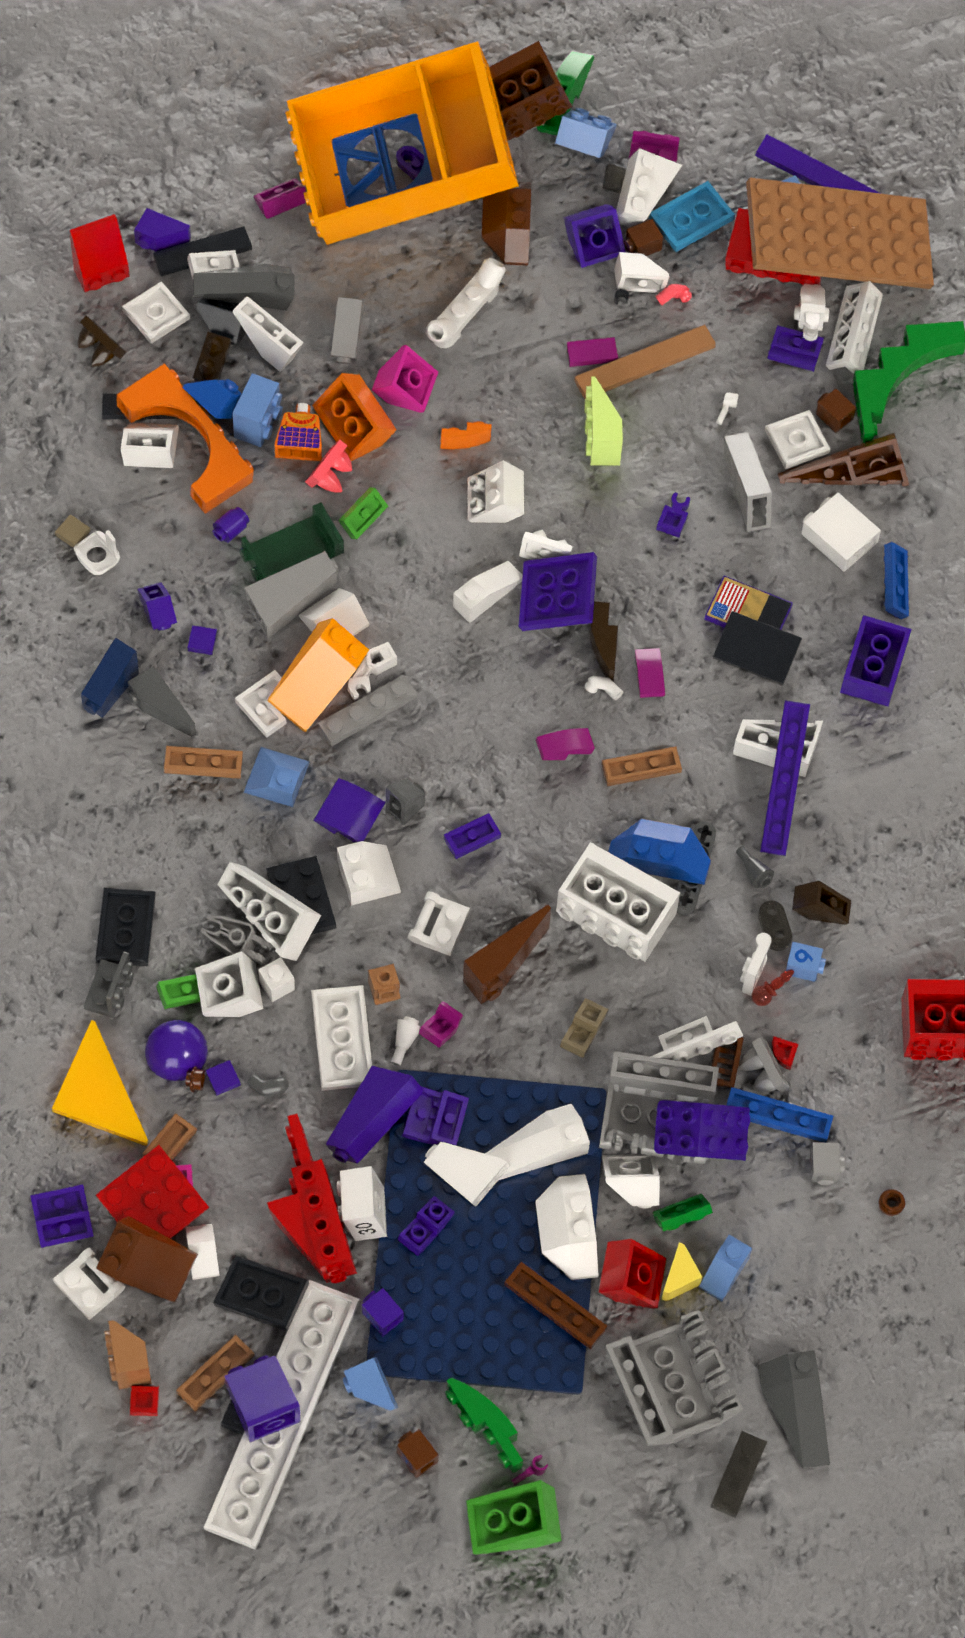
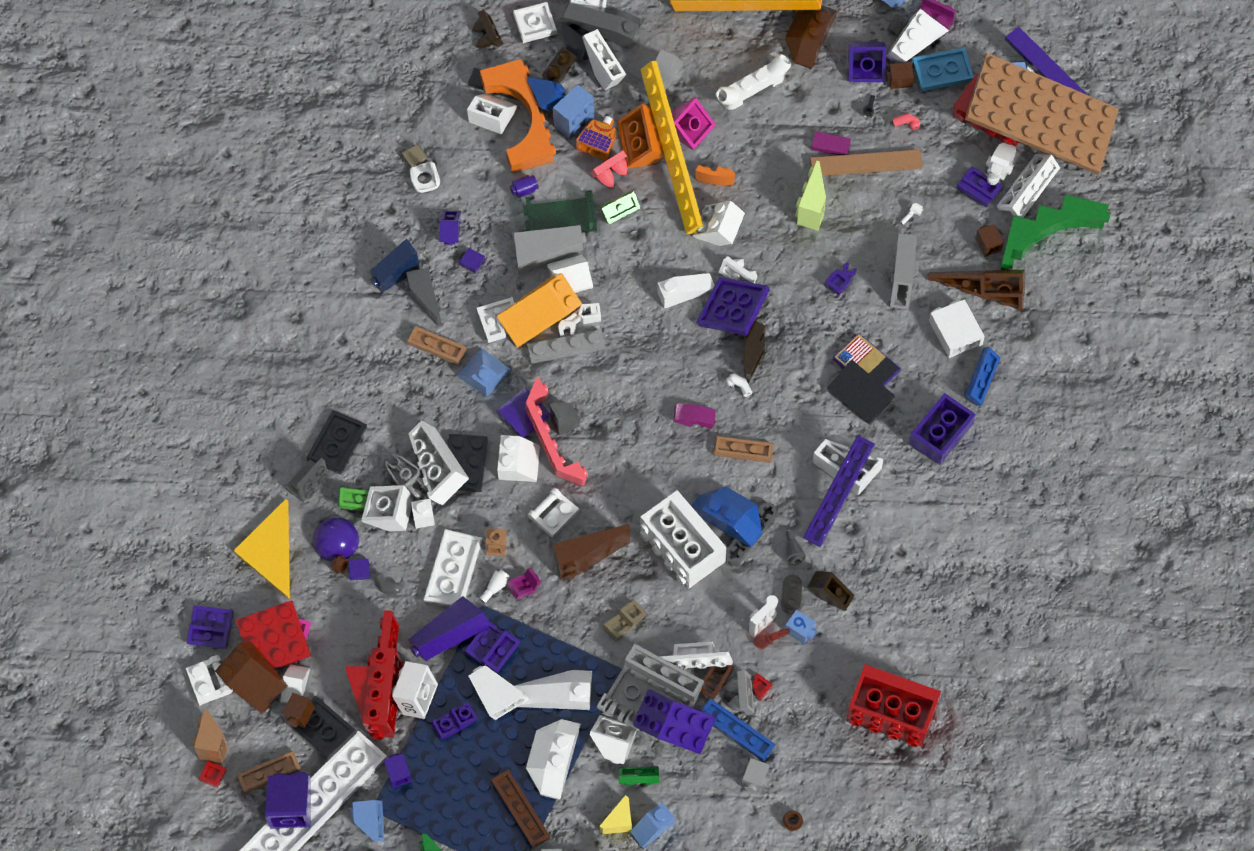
camera: 25 degrees right, 0 degrees up
(173, 1136) = (307, 599): medium nougat tile -> none
(224, 1281) = (298, 710): none -> reddish brown brick
(400, 417) = (671, 147): none -> yellow plate
(445, 866) = (573, 472): none -> coral slope
(472, 836) = (602, 458): dark purple plate -> none
(632, 1274) = (585, 806): red slope -> none
(639, 274) = (887, 98): white slope -> none
(649, 672) = (776, 384): magenta slope -> none
(797, 439) = (953, 252): white plate -> none

